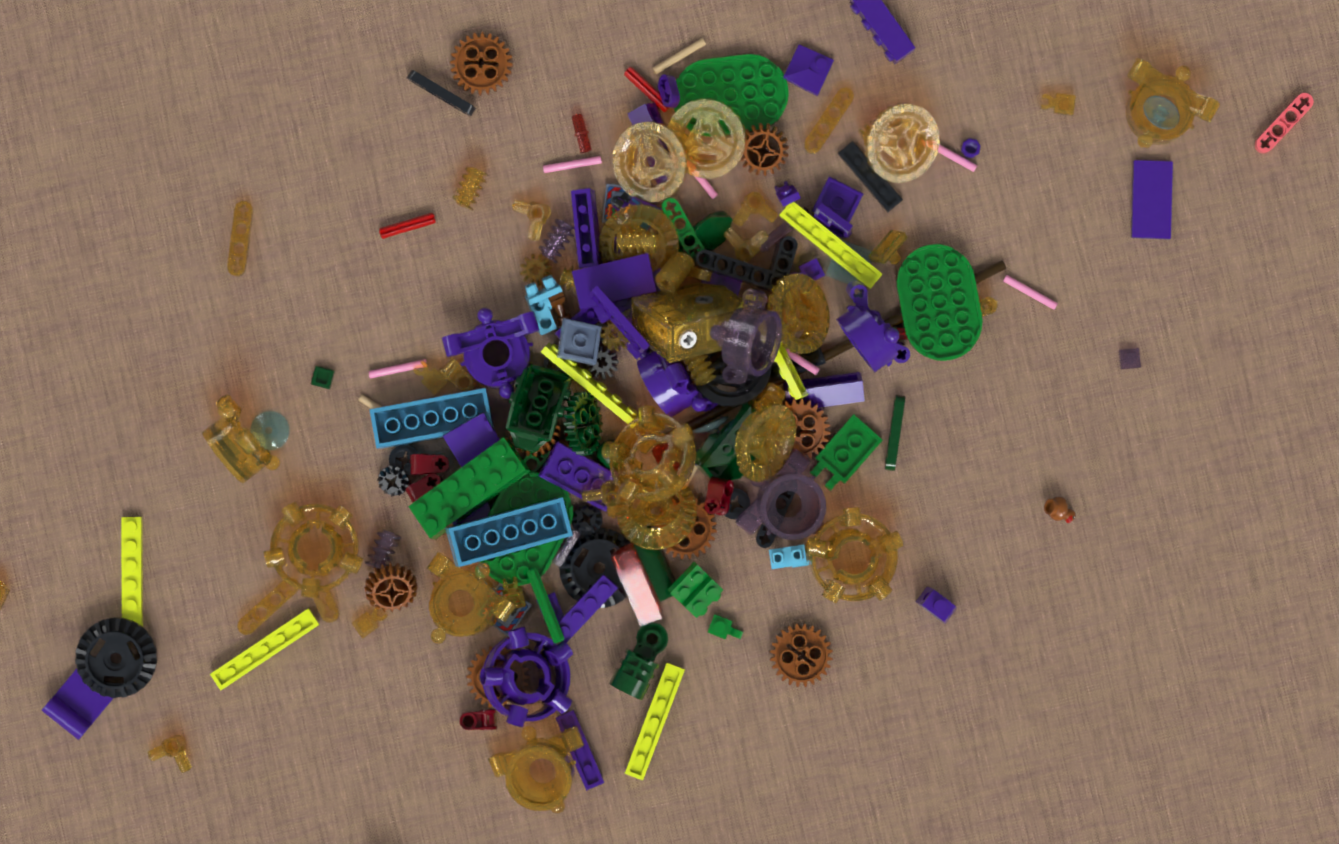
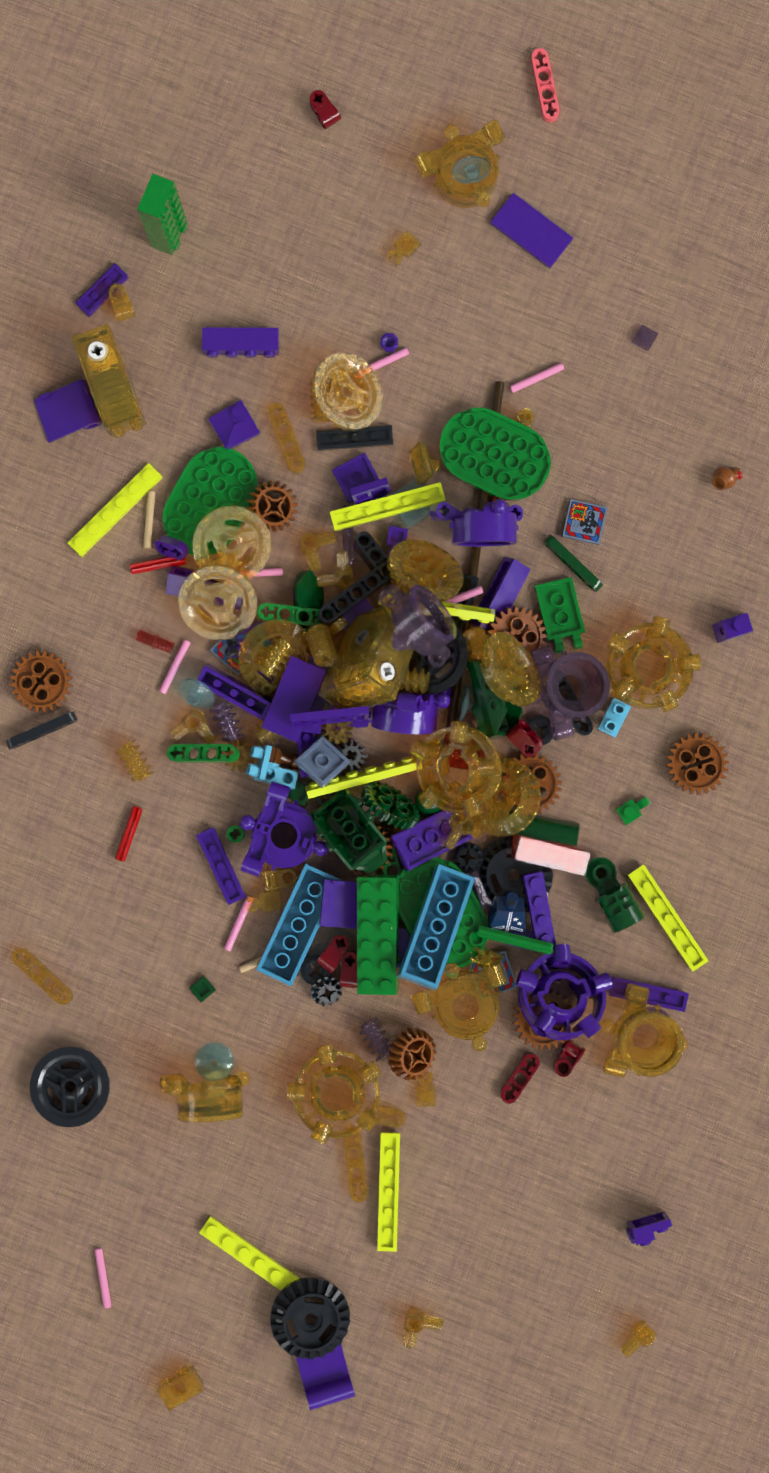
camera: 55 degrees left, 0 degrees up
(29, 465) = (102, 1278): none -> bright pink piece
(147, 341) = (50, 1074): none -> black gear
(434, 320) = (221, 866): none -> dark purple plate
(440, 685) = (523, 1062): none -> dark red beam
(467, 319) = (239, 838): none -> green bush
(514, 240) = (203, 750): none -> green beam
(539, 342) = (299, 793): none -> dark green tile
(562, 198) = (196, 693): none -> clear light blue dish
(563, 585) = (507, 914): none -> dark blue torso
(667, 22) = (115, 510): none -> neon yellow plate
(695, 590) = (587, 810): green plate -> none
(786, 194) = (322, 512): dark purple plate -> none
(937, 418) = (584, 522): none -> tile

